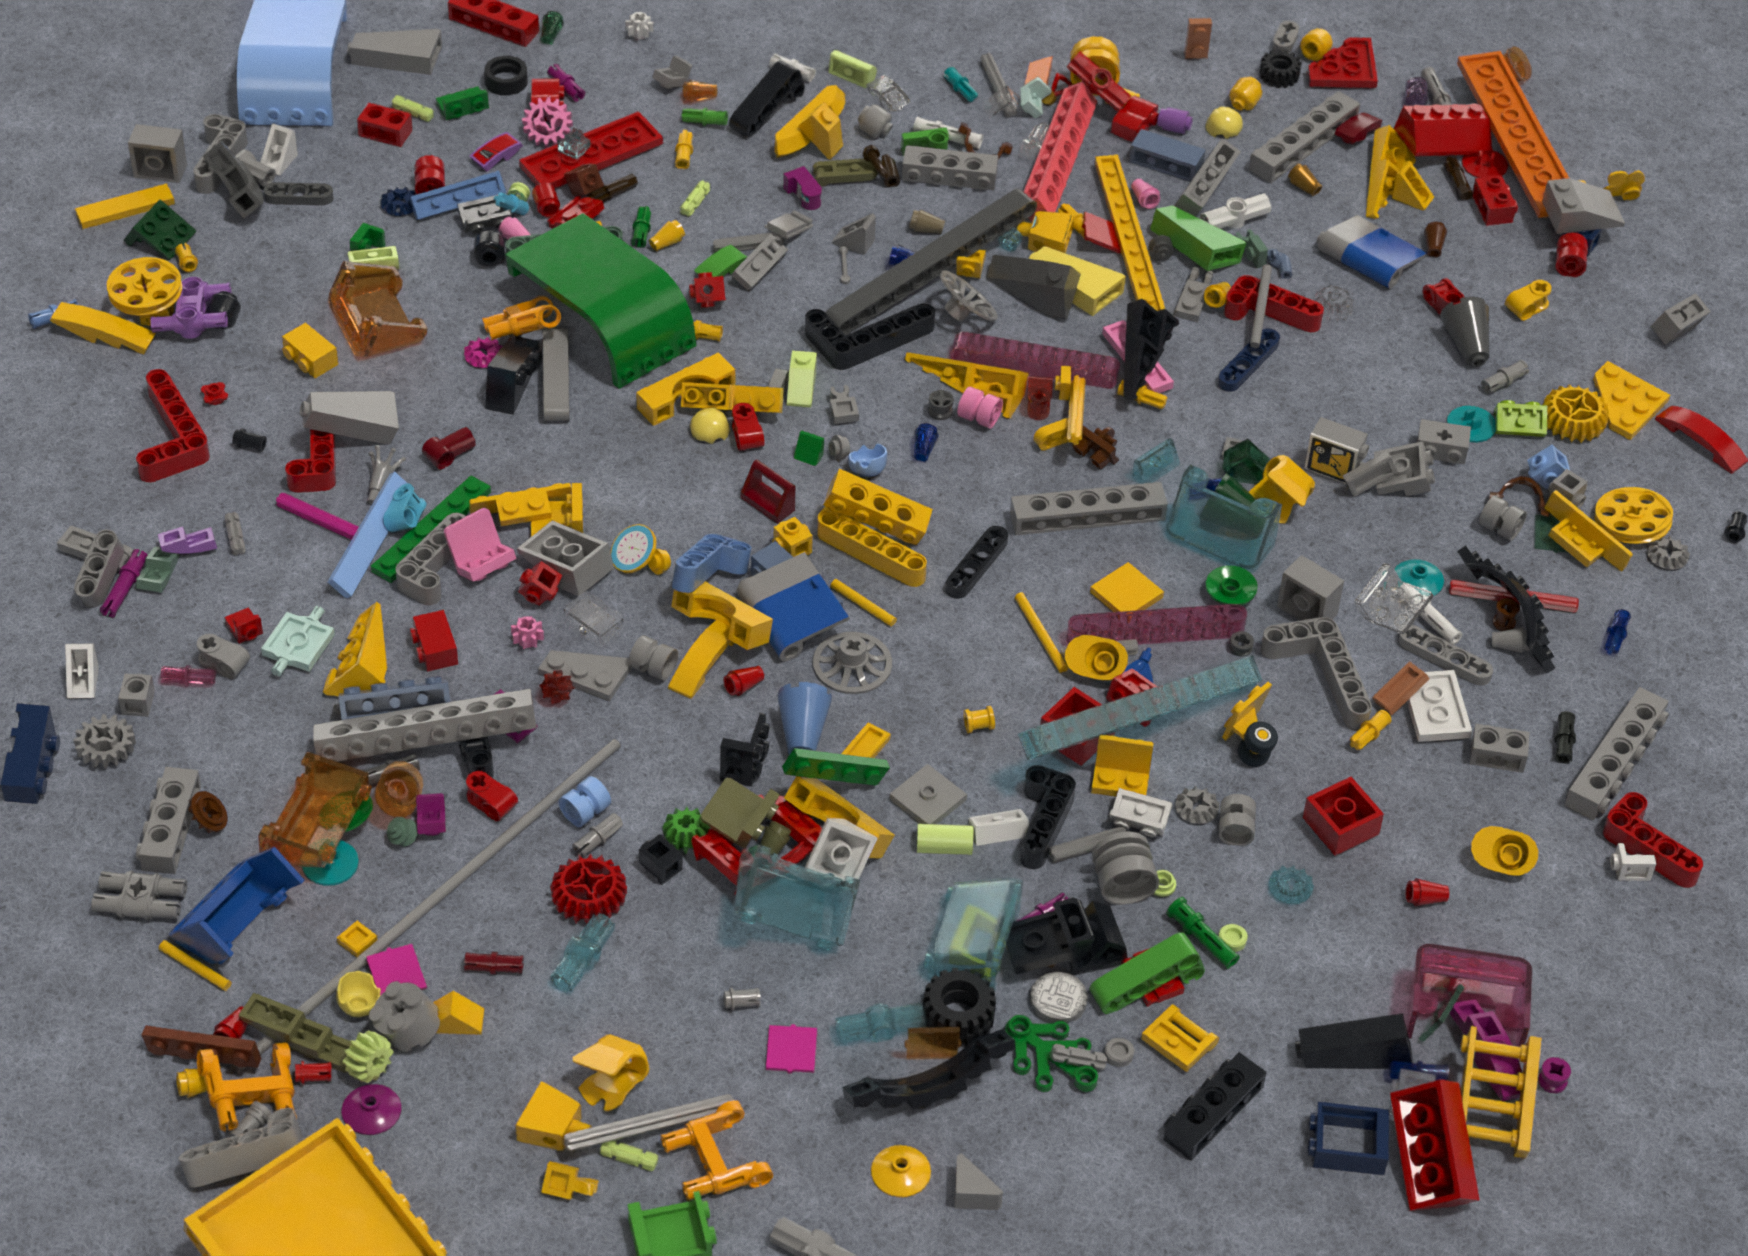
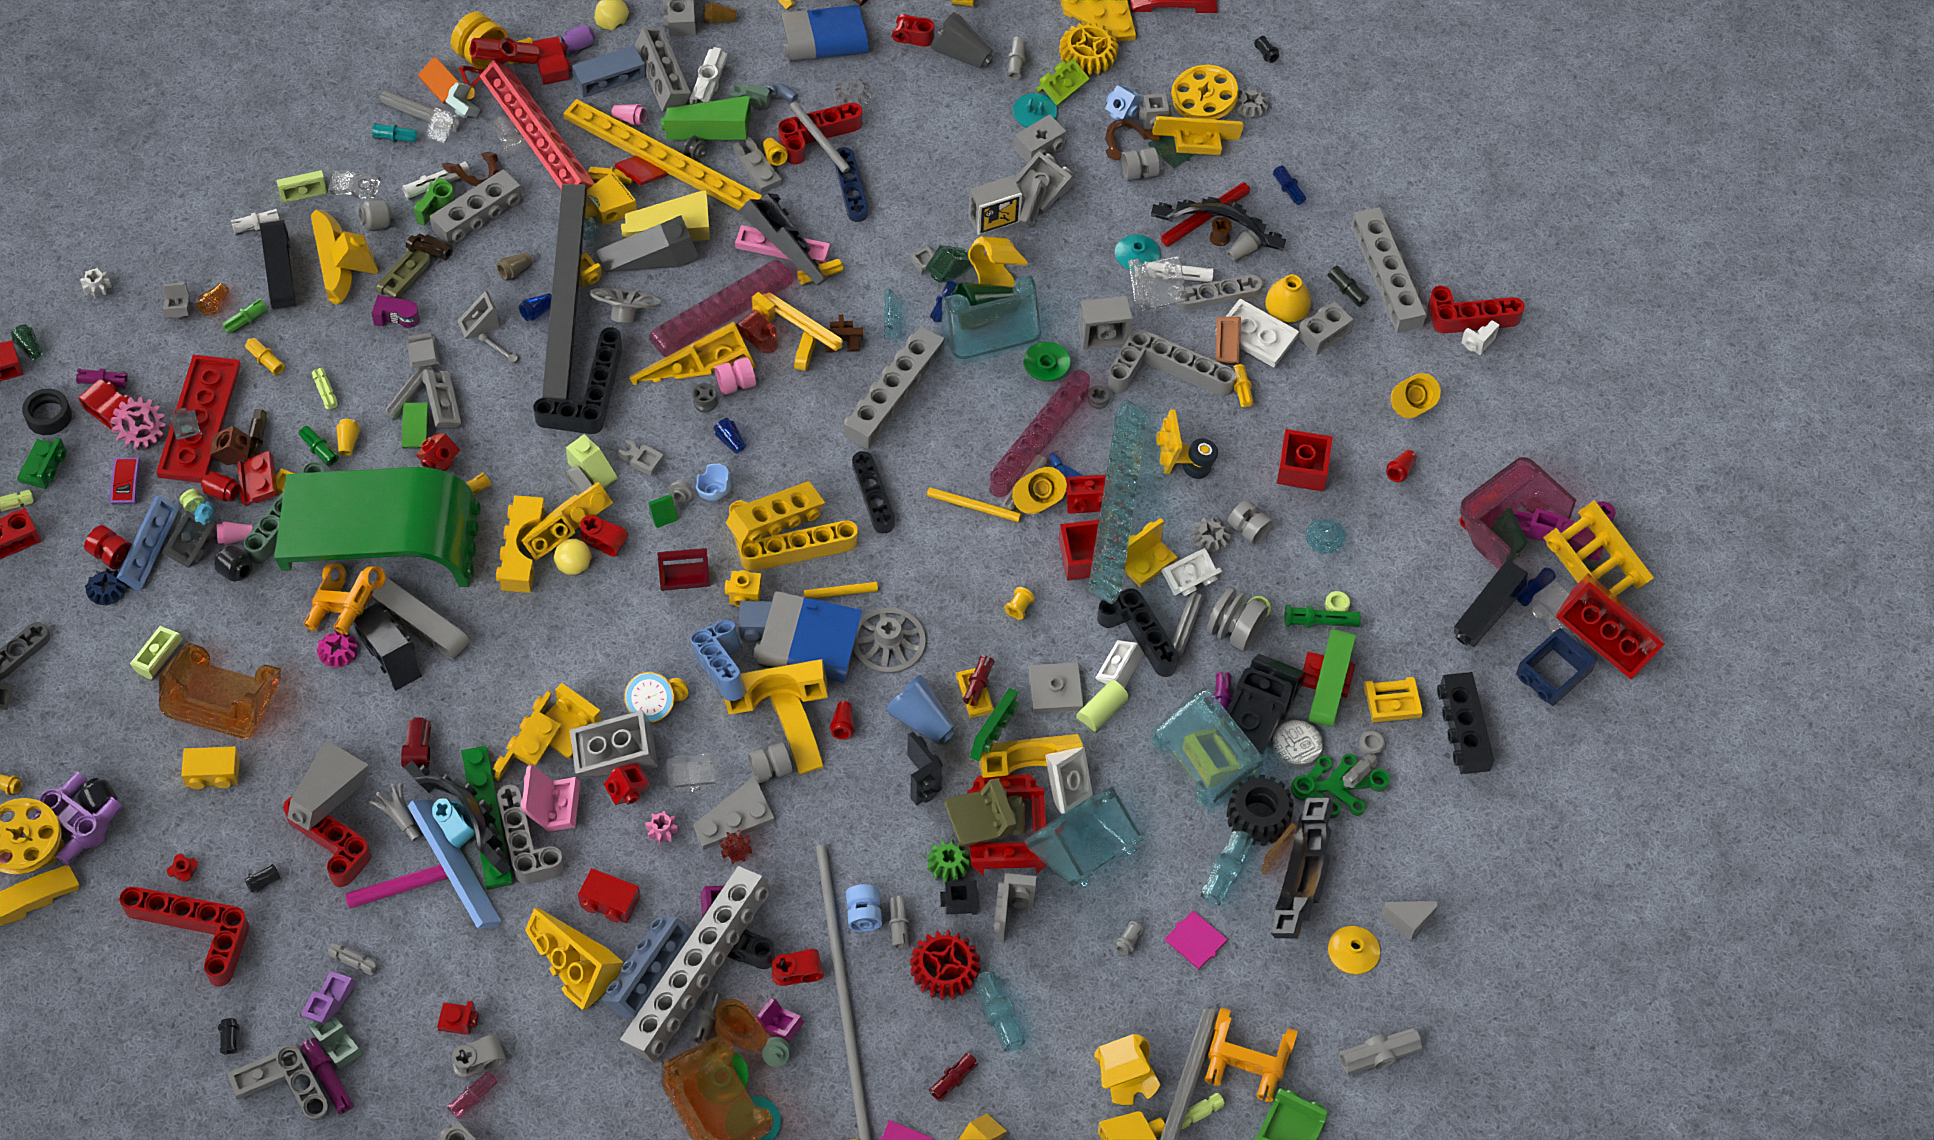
camera: 50 degrees left, 10 degrees up
(103, 508) = (228, 1036): none -> black pin
(298, 641) = (514, 991): light aqua plate -> none
(366, 237) = (126, 636): green bracket -> none
(416, 512) = (479, 811): none -> black piece
(686, 882) = (1015, 891): none -> light grey bracket
(872, 736) = (978, 680): none -> dark red pin
(1126, 590) = (987, 425): yellow tile -> none
(1496, 703) = (1288, 299): none -> yellow piece

